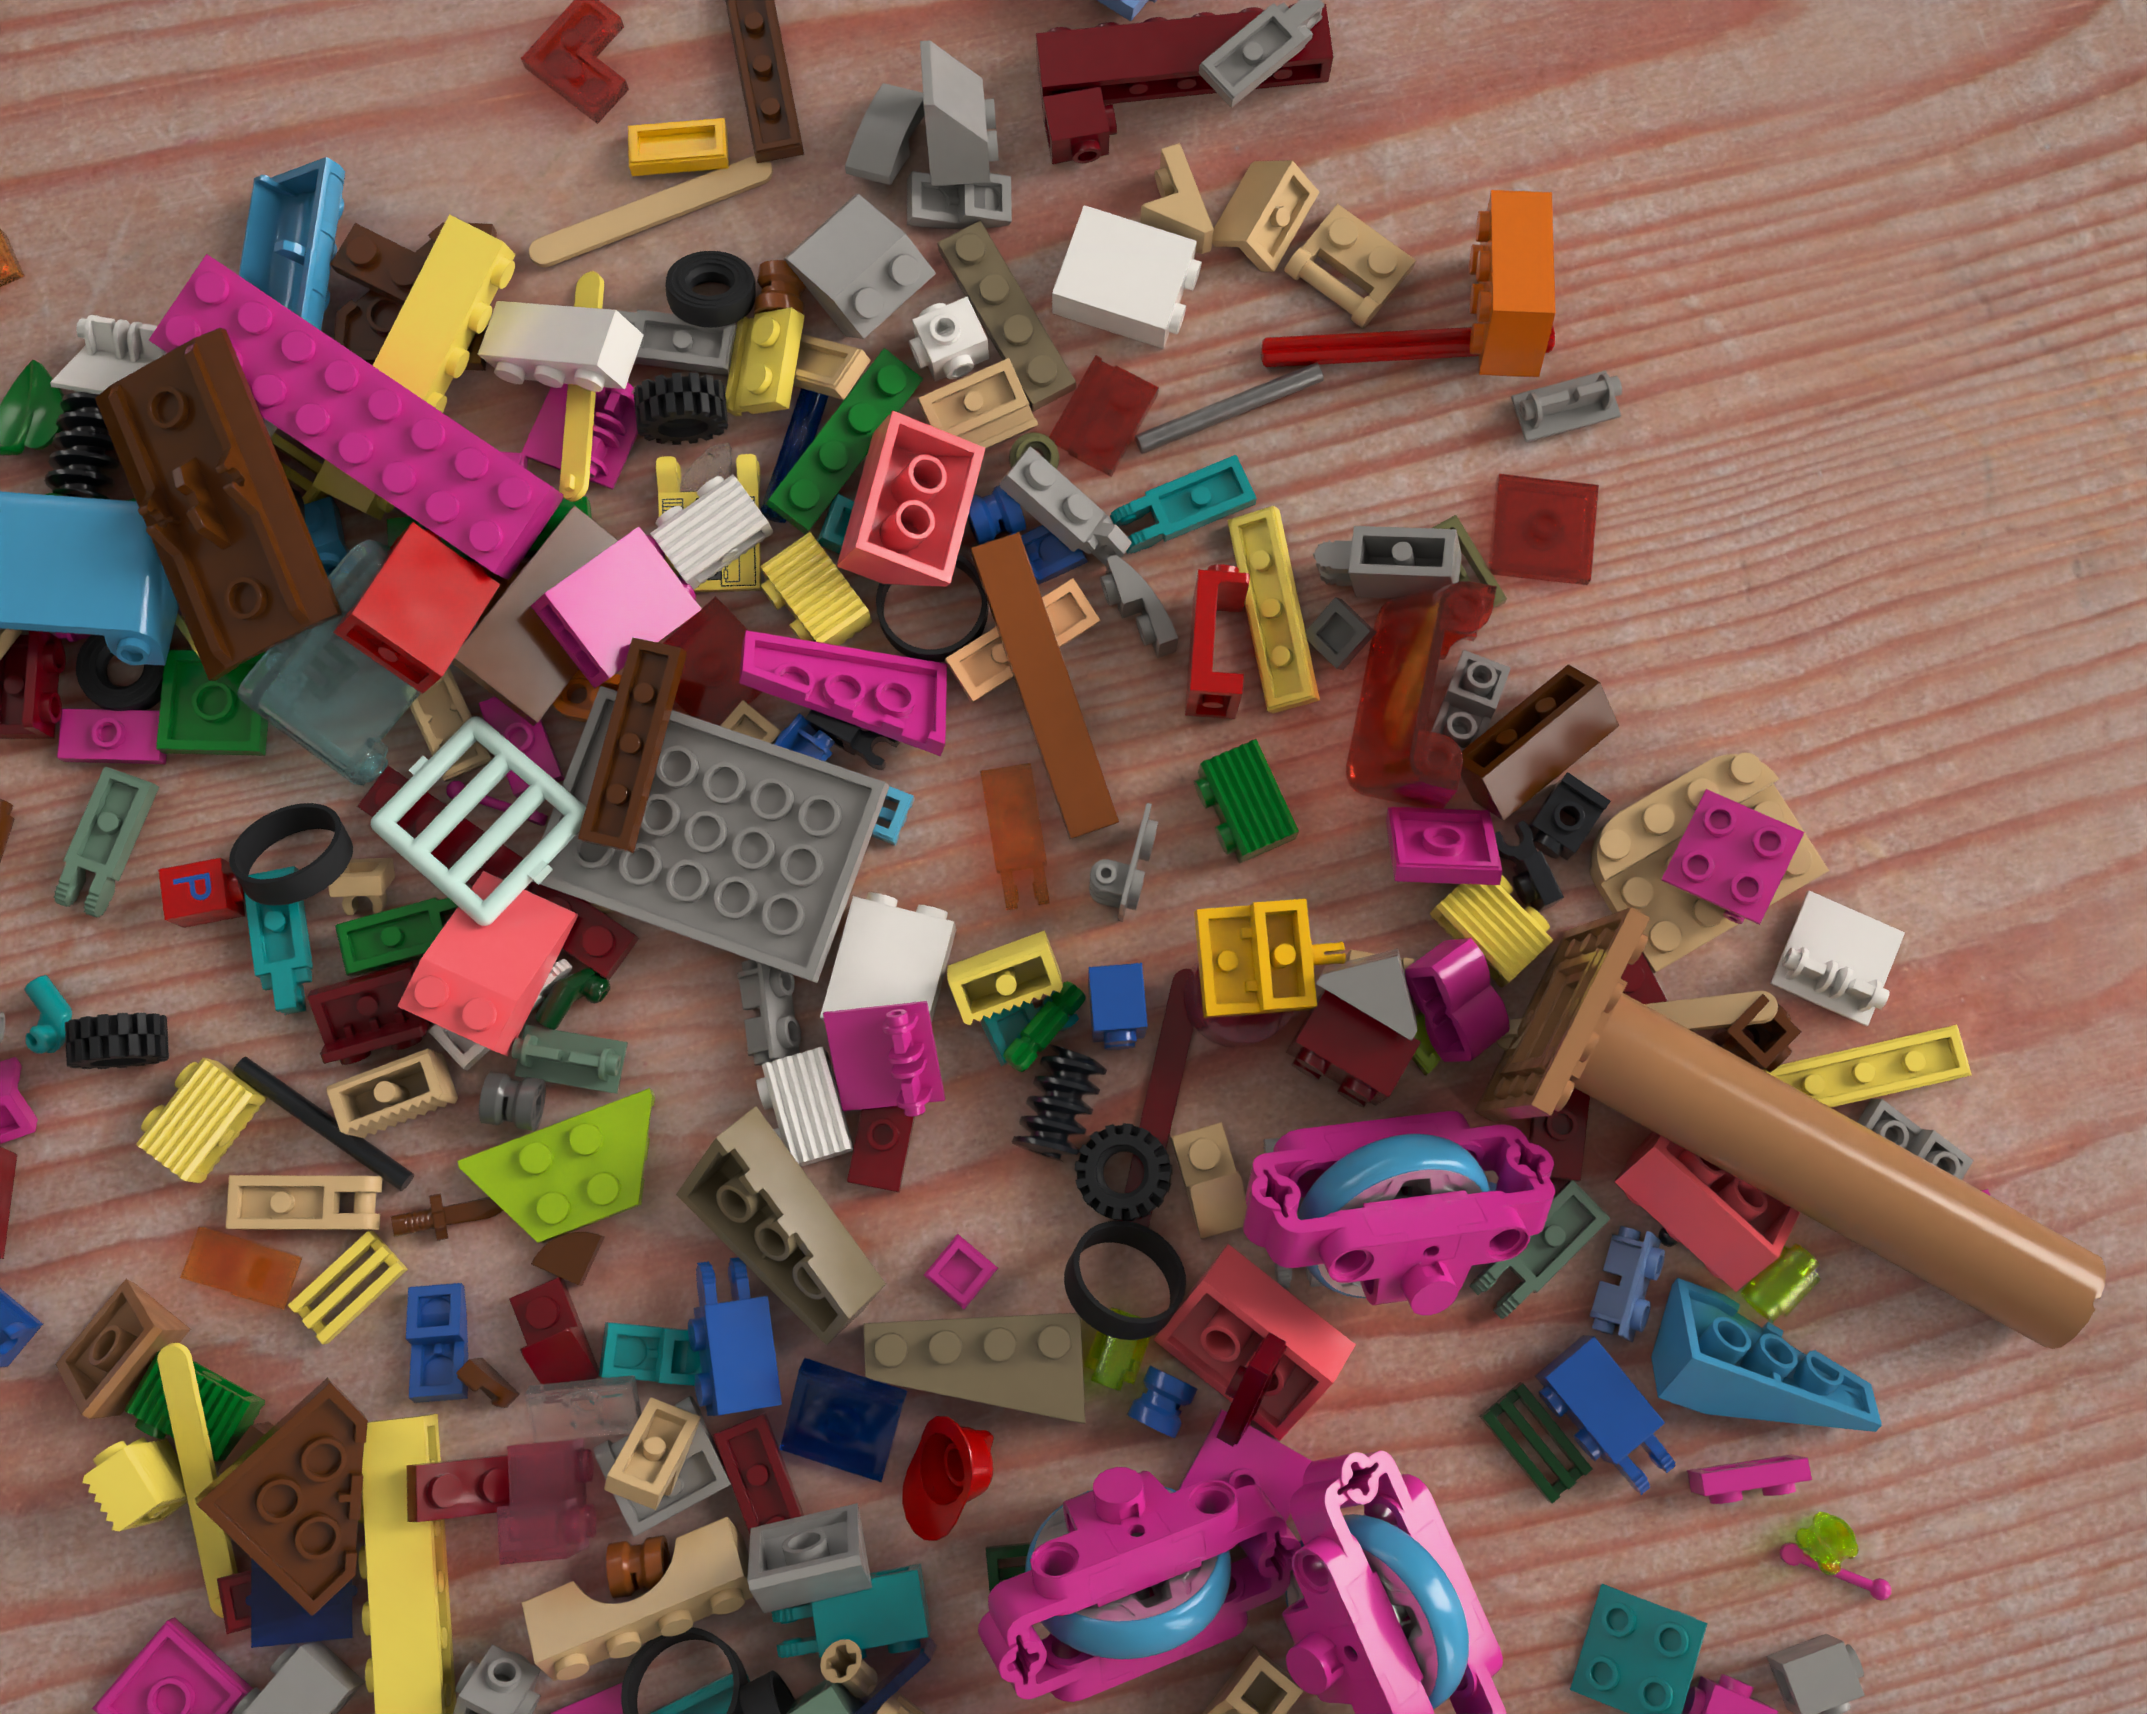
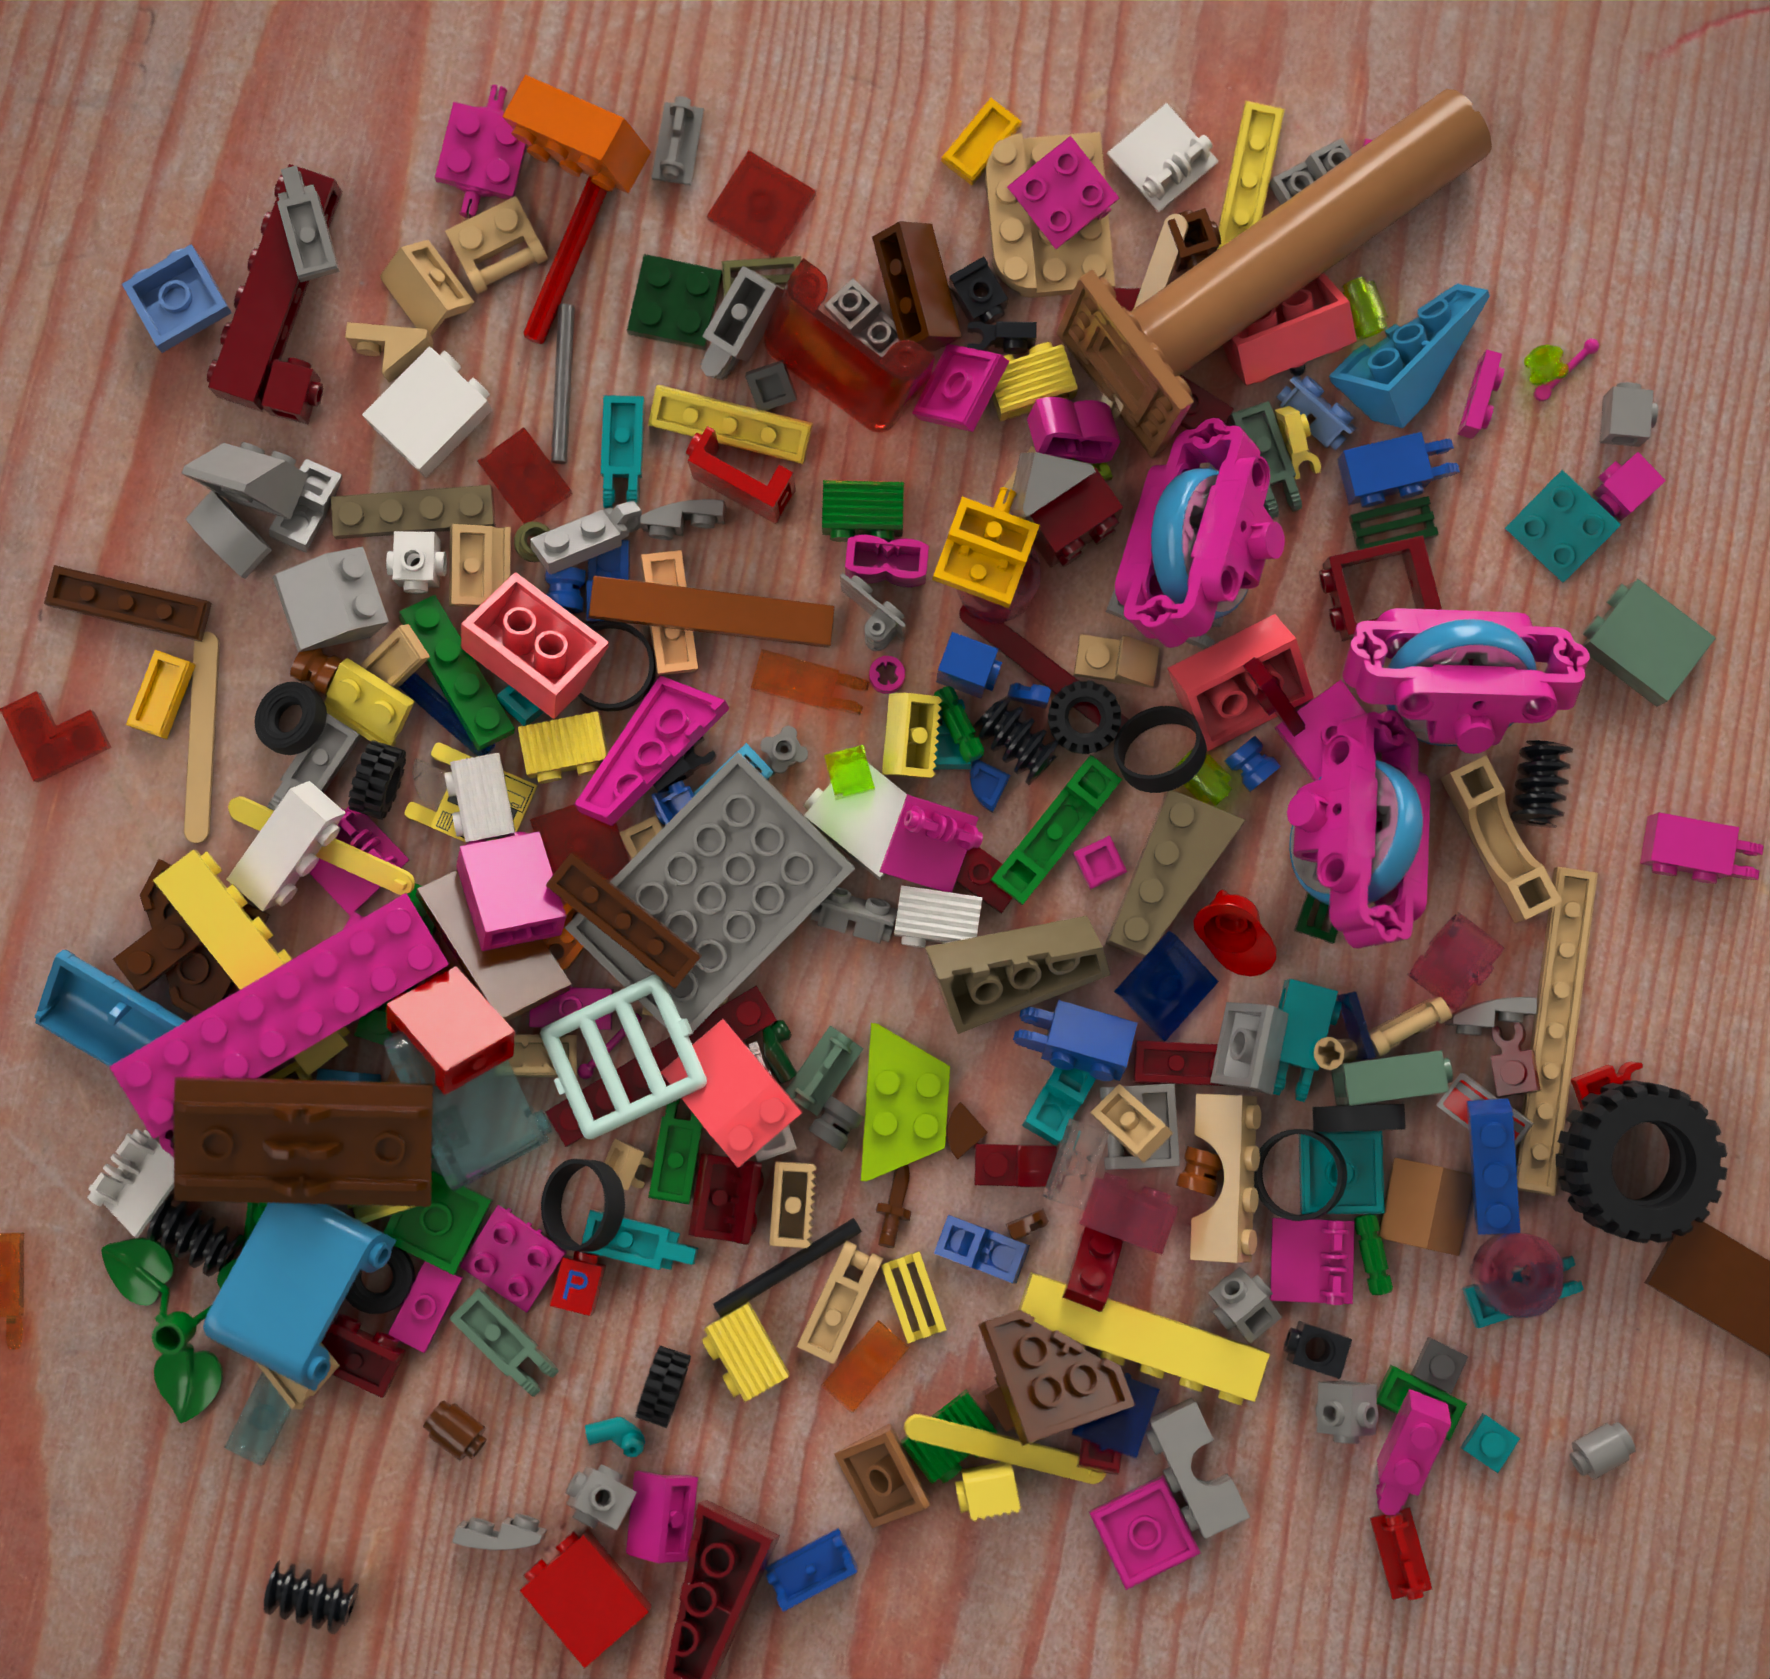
camera: 65 degrees left, 5 degrees up
(206, 805) = (513, 1258): none -> dark pink hinge
(922, 921) = (849, 772): none -> clear neon green panel
(928, 856) = (780, 760): none -> light grey plate
(972, 1200) = (1056, 829): none -> green slope
(994, 1095) = (987, 783): none -> blue tile
(1058, 906) = (899, 673): none -> dark pink bush
(1121, 1095) = (1035, 695): none -> blue tile
(1190, 841) = (897, 561): none -> dark pink brick
(1384, 482) = (674, 301): none -> dark green plate
(1440, 201) = (480, 152): none -> dark pink plate
(1495, 1497) = (1417, 568): none -> dark red window
(1588, 1265) = (1295, 430): none -> light yellow plate
(1728, 731) = (974, 145): none -> yellow tile

